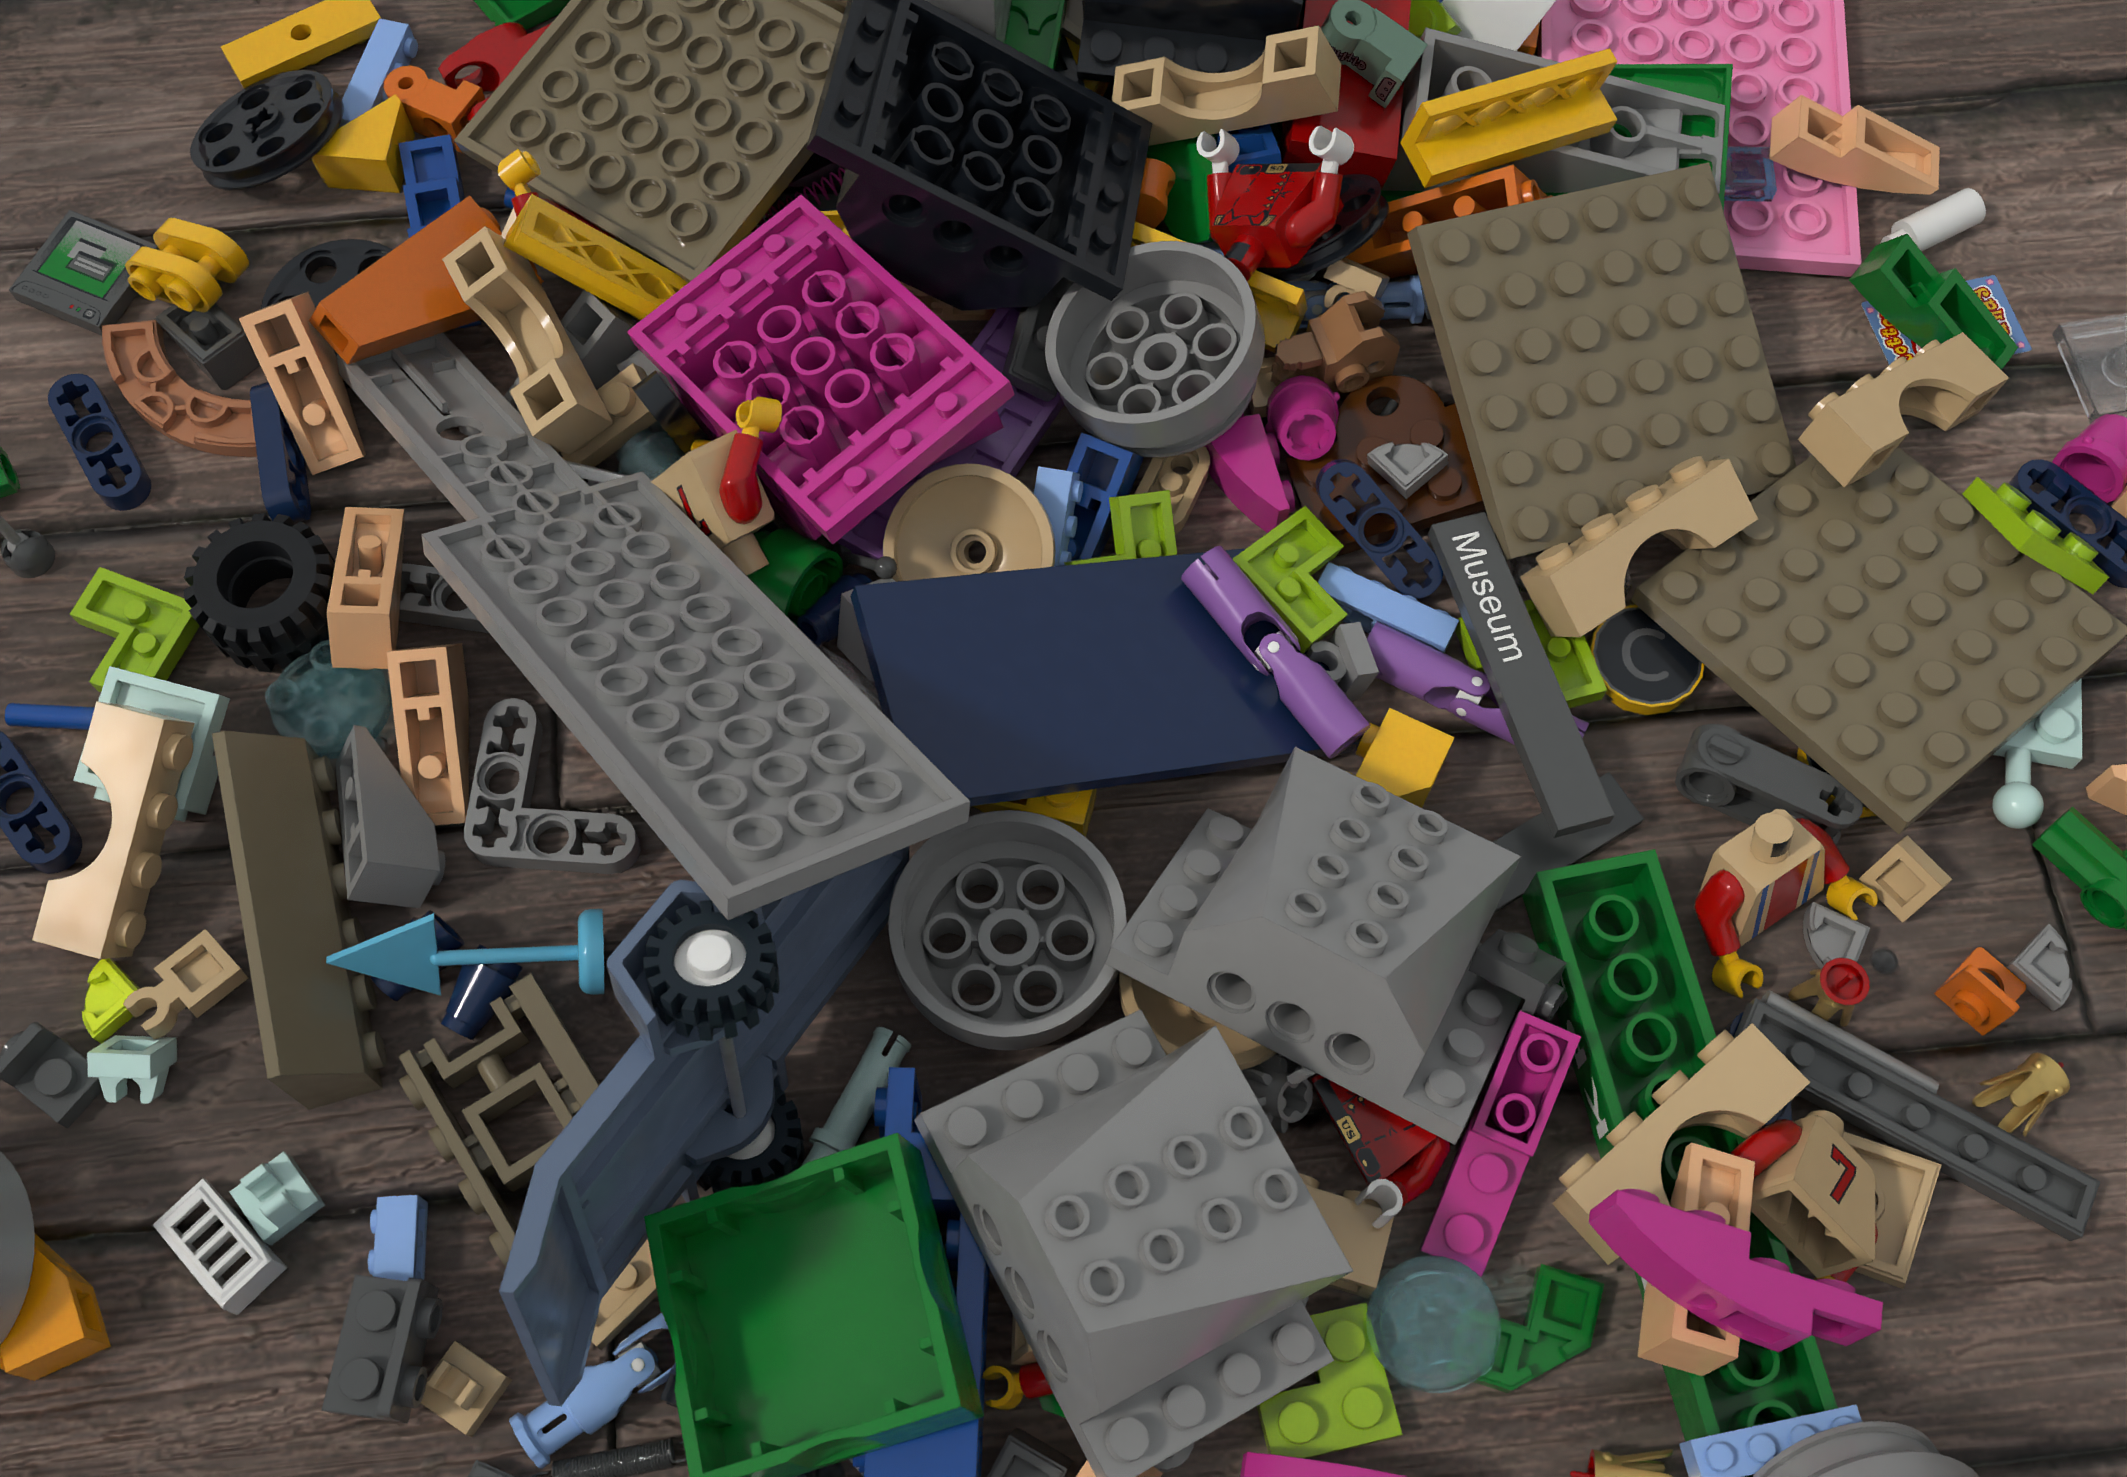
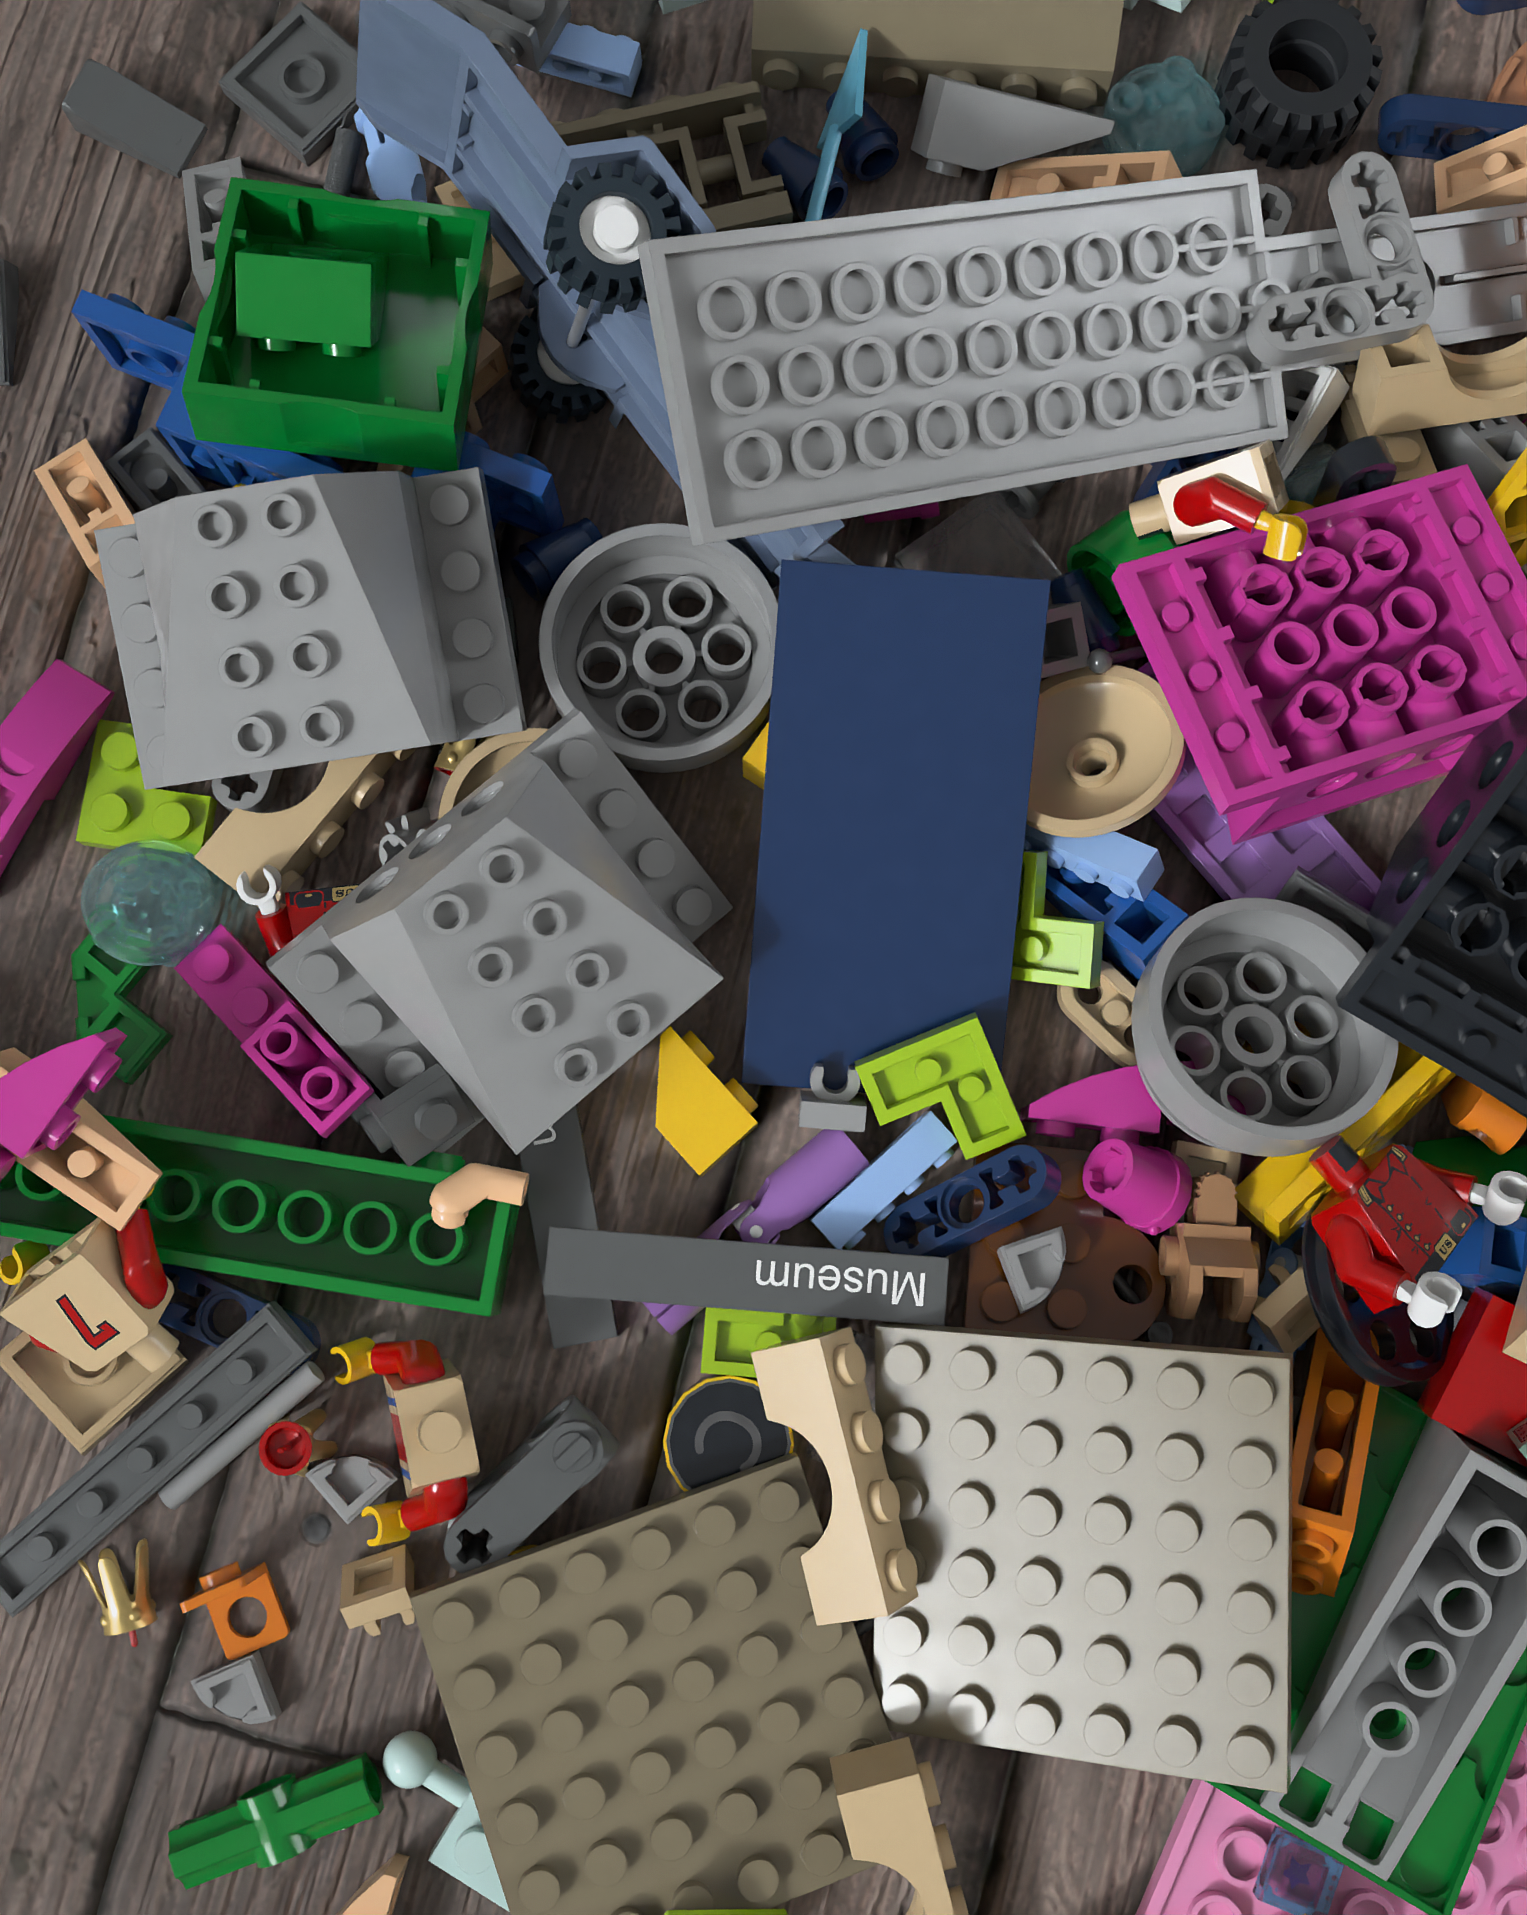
camera: 110 degrees right, 15 degrees up
(366, 588) = (1233, 136): light nougat slope -> none
(489, 429) = (1373, 279): none -> light grey beam
(788, 1357) = (310, 296): none -> green slope
(858, 1099) = (538, 441): light aqua pin -> none
(941, 1073) = (546, 557): none -> dark blue cone
(1301, 682) = (828, 1032): medium lavender piece -> none
(1510, 119) = (1420, 1566): yellow fence -> none
(1560, 896) = (471, 1185): none -> light nougat arm
(1735, 1090) = (210, 1258): tan arch -> none

